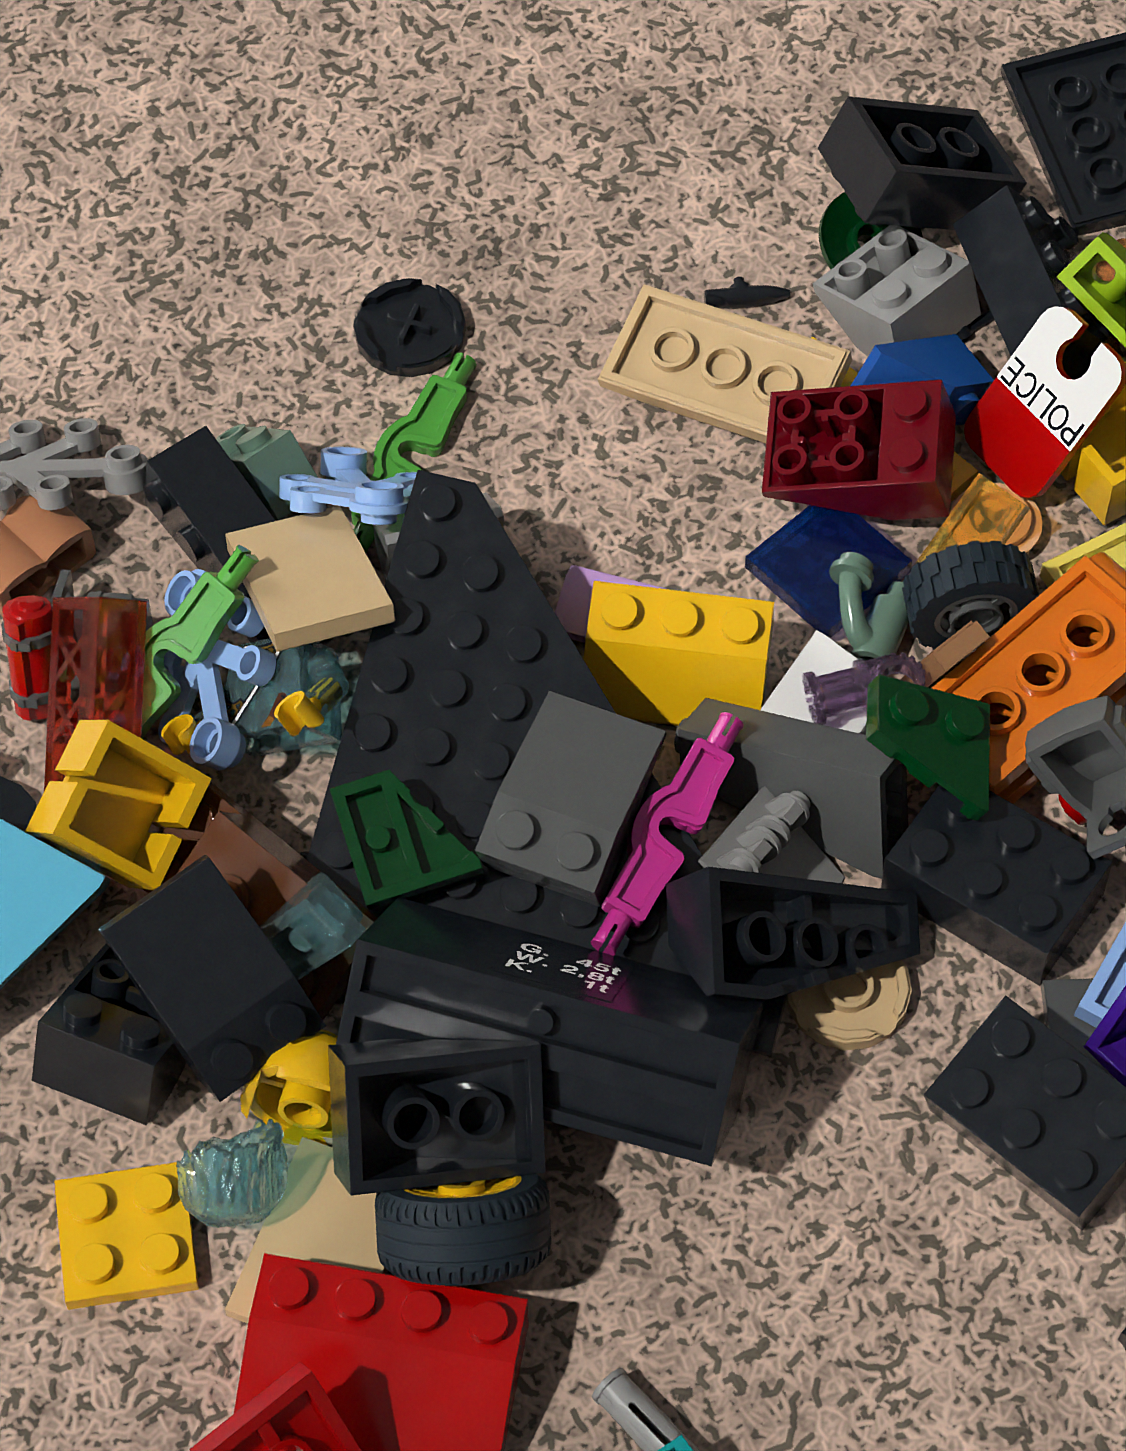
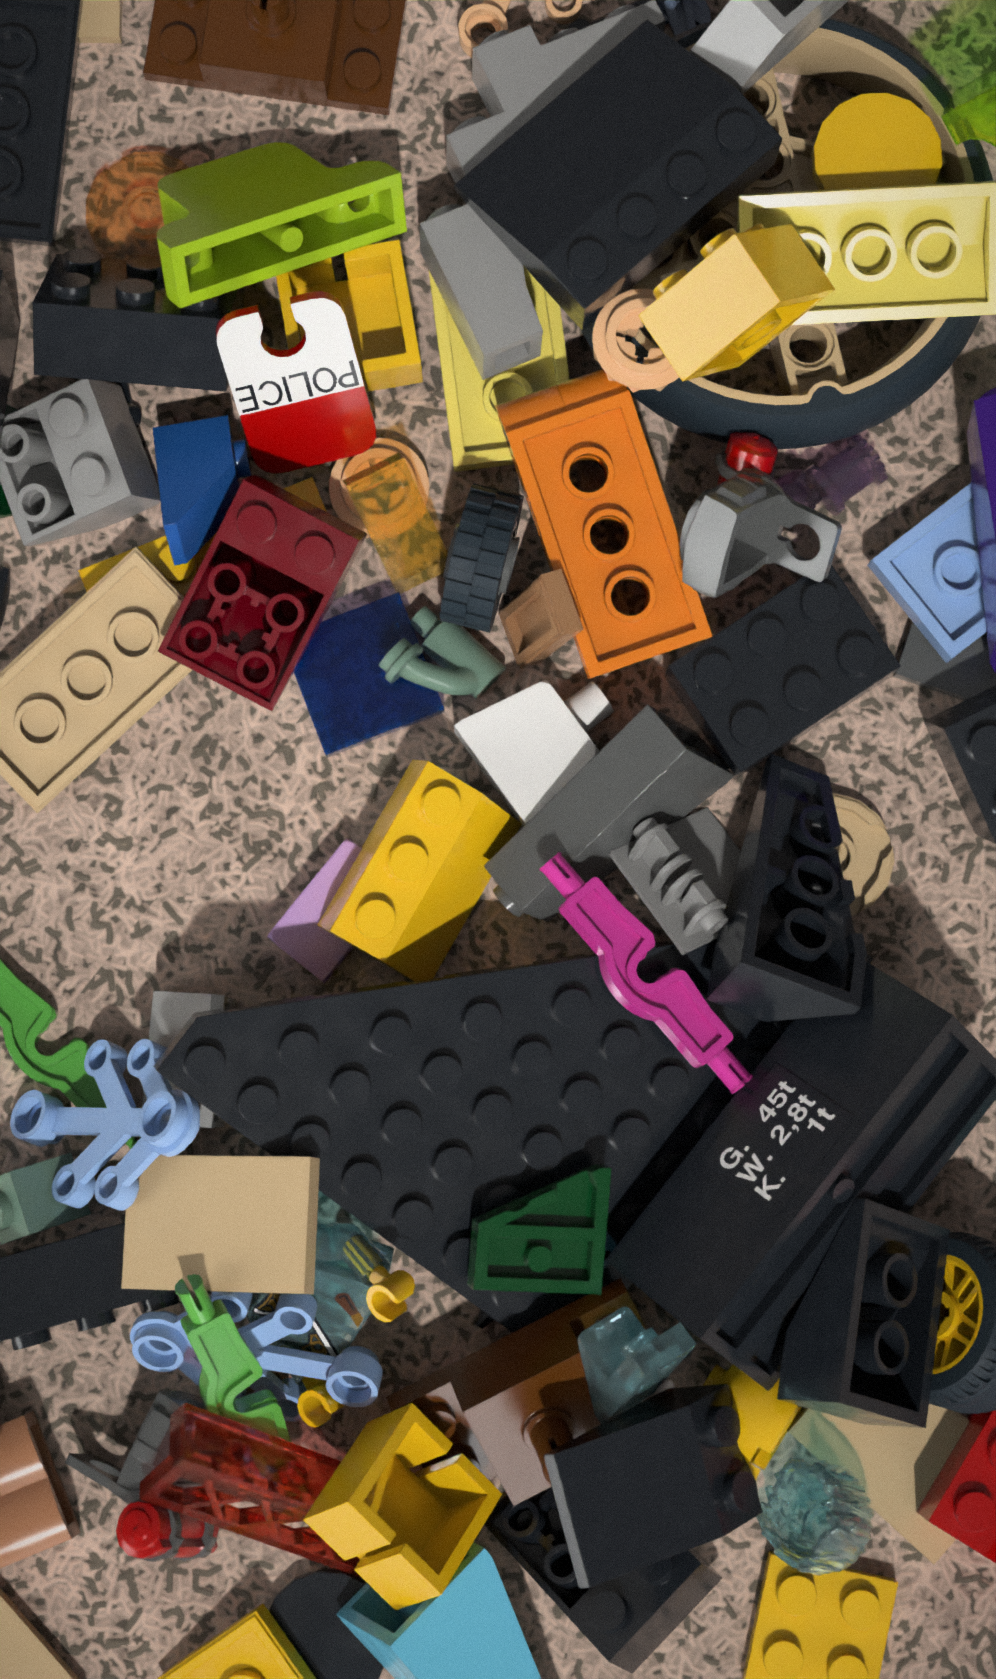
camera: 70 degrees left, 25 degrees up
(570, 798) = (580, 1054): dark grey slope -> none
(848, 688) = (555, 710): clear purple connector -> none
(934, 736) = (657, 675): dark green wing -> none

